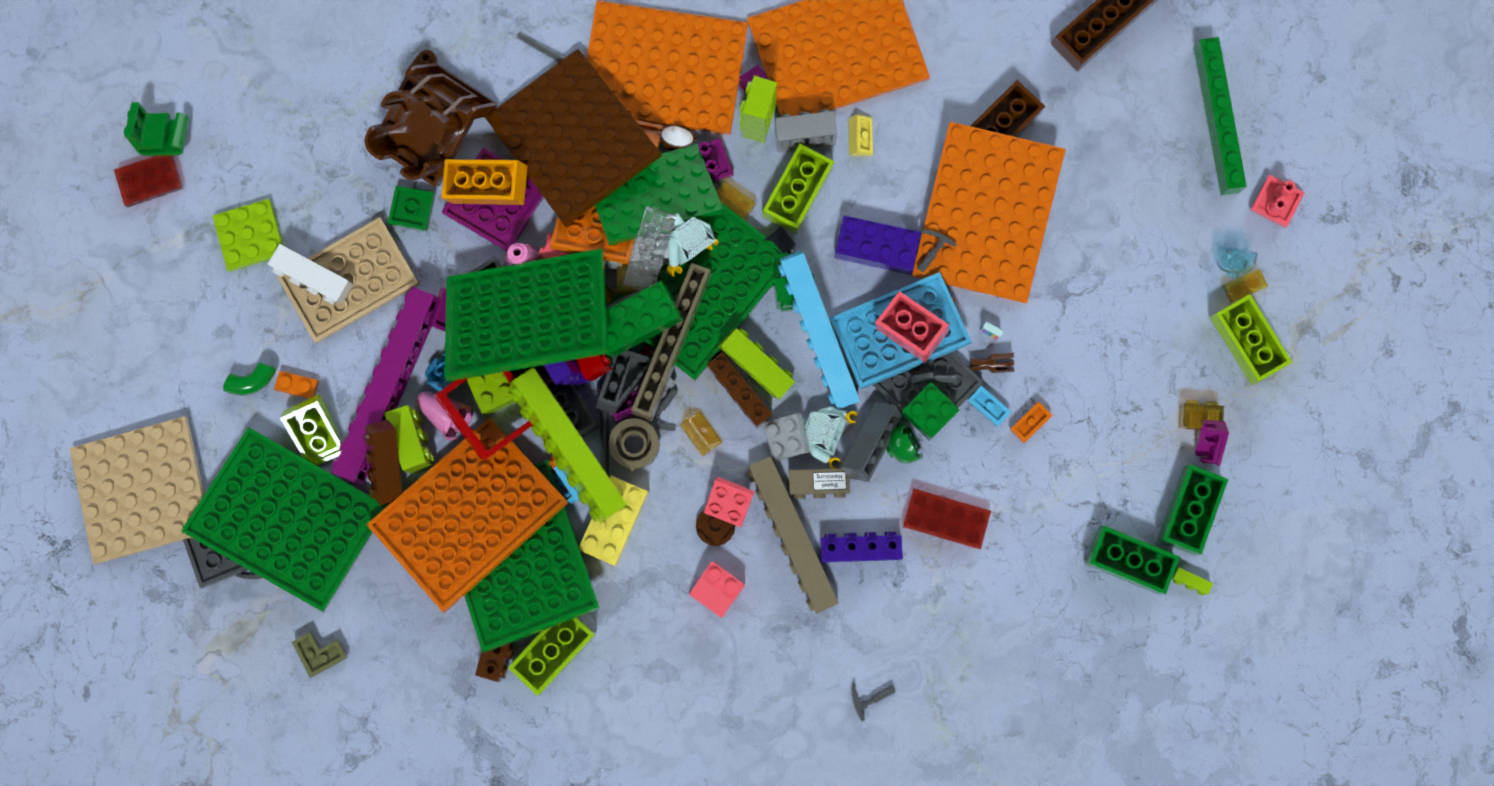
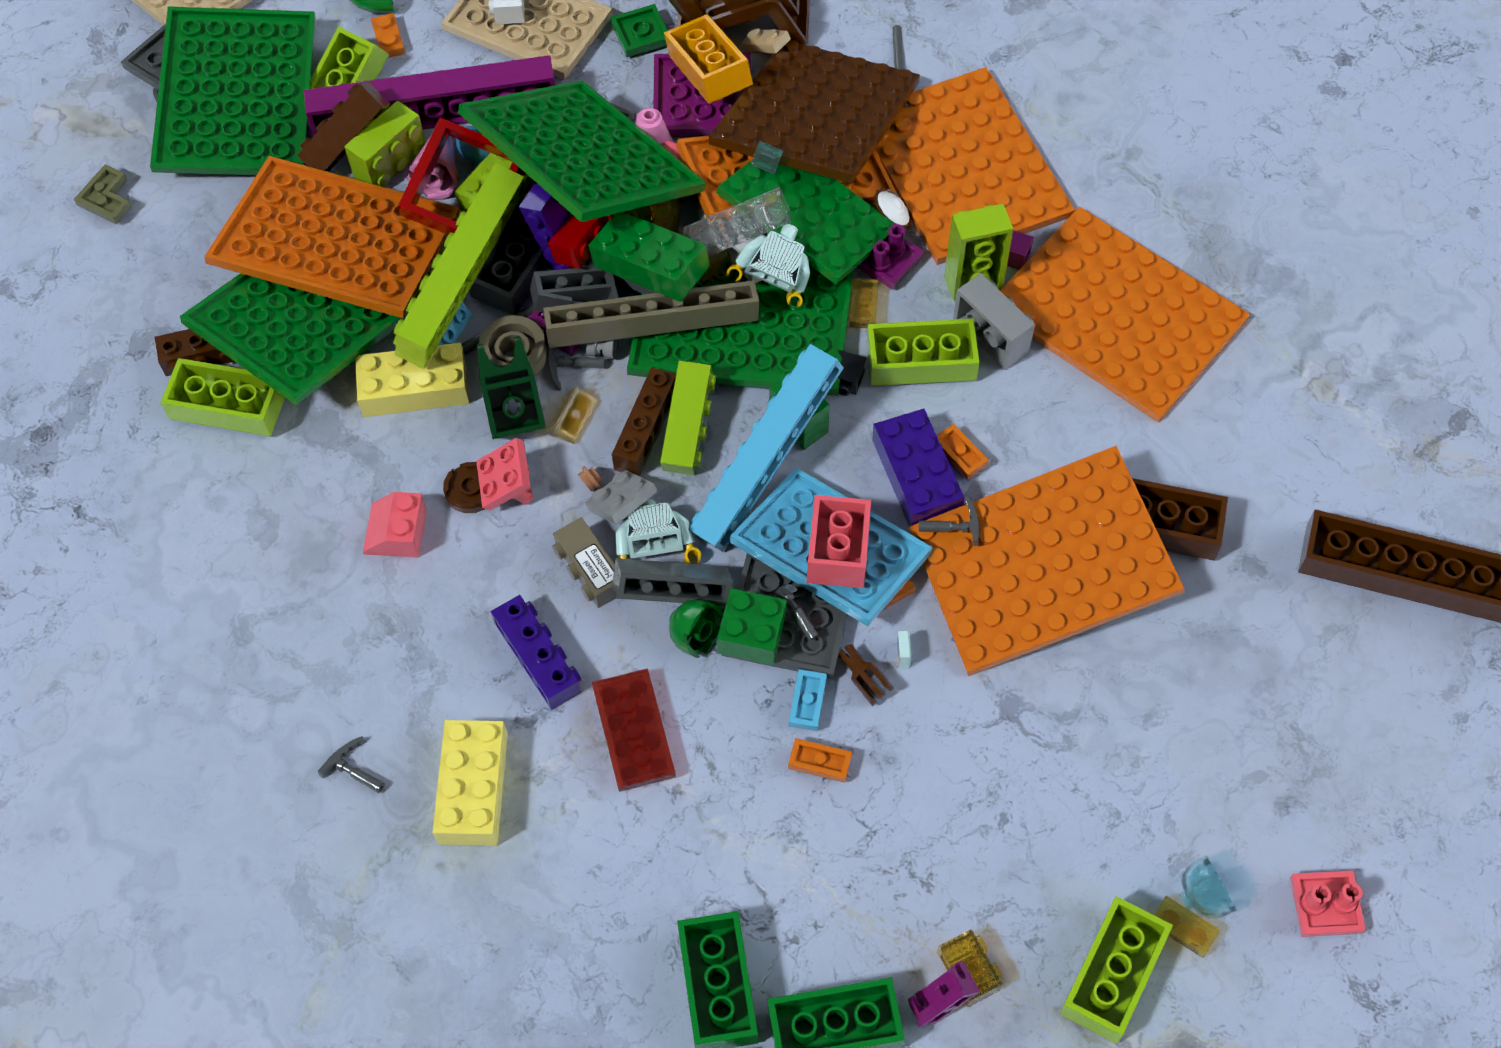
camera: 60 degrees right, 20 degrees down
(482, 131) = (765, 40): none -> tan plate
(607, 197) = (767, 157): none -> clear light blue tile
(673, 465) = (506, 383): none -> dark green brick
(758, 448) = (590, 478): none -> nougat plate
(793, 535) = (505, 570): dark tan brick -> none
(860, 136) = (1036, 388): light yellow slope -> none
(880, 210) = (962, 452): none -> orange plate
(926, 634) = (470, 783): none -> light yellow brick
(1220, 116) = (1376, 765): green brick -> none

